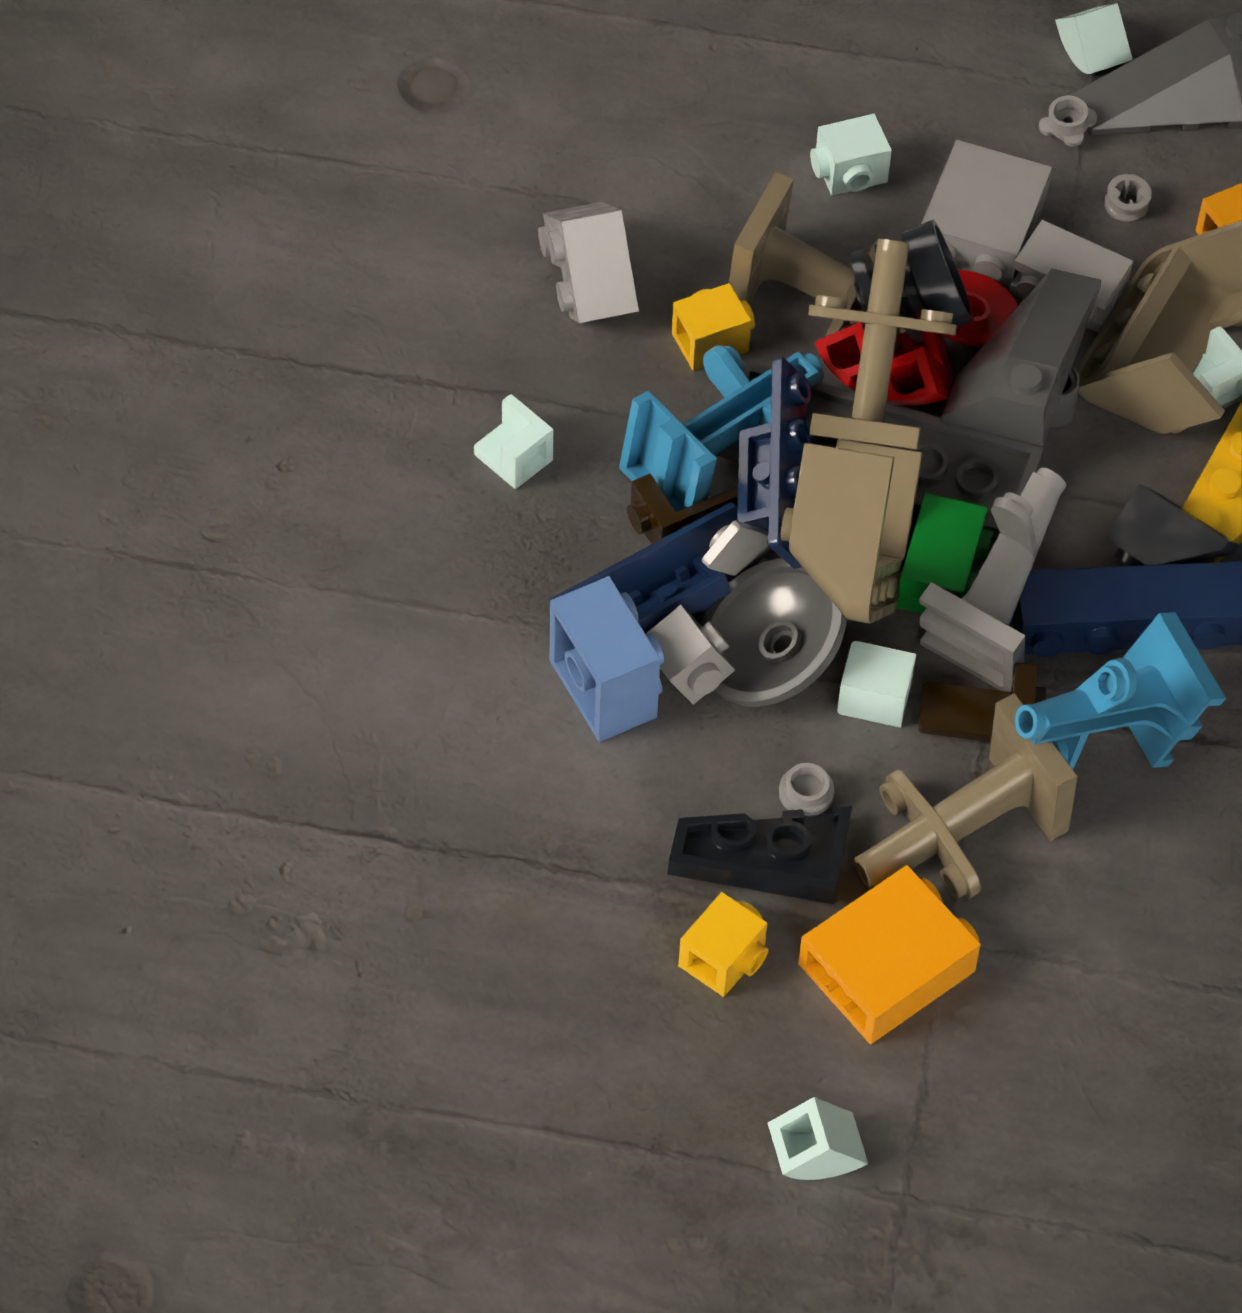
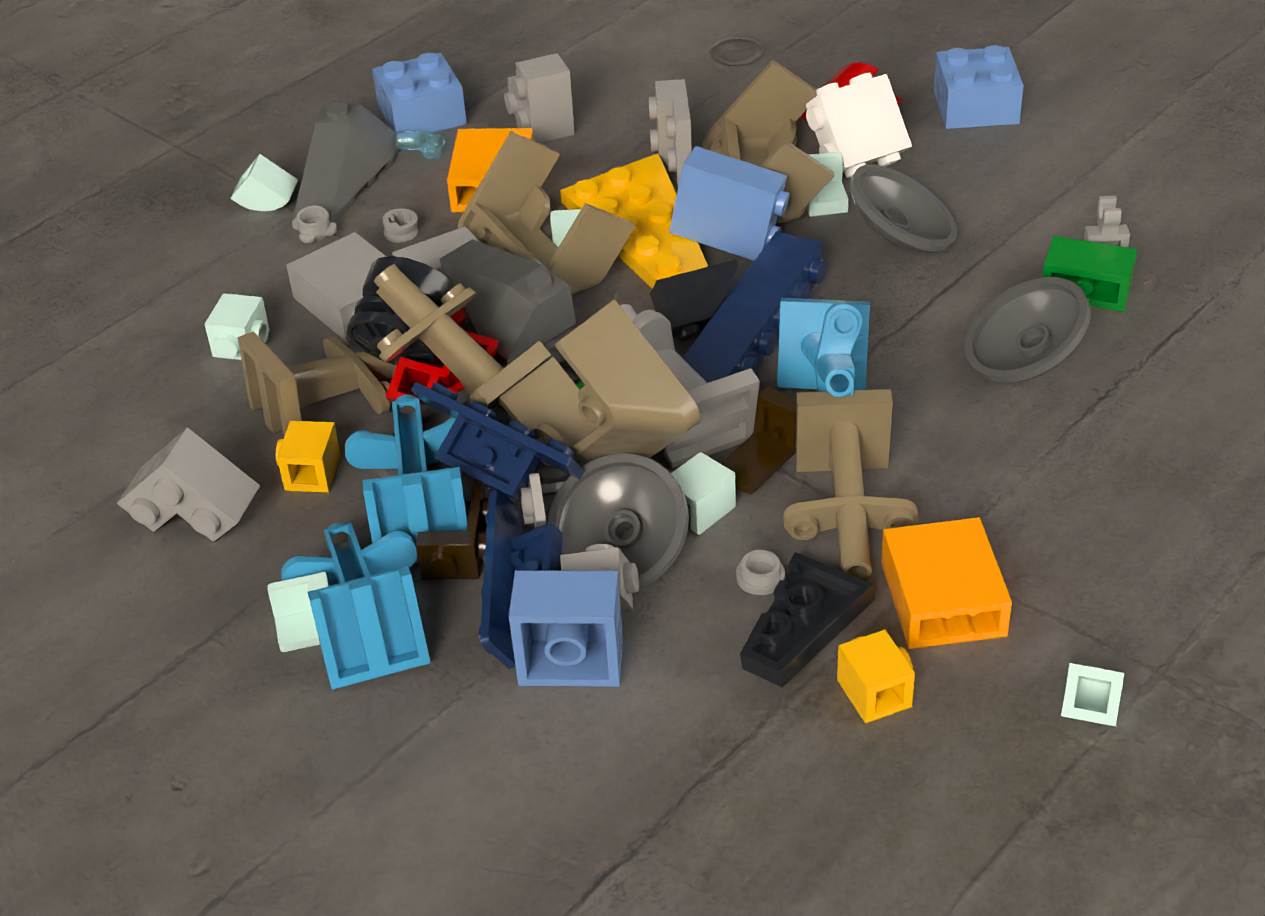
camera: 55 degrees left, 15 degrees down
(517, 500) = (369, 610): none -> dark azure piece

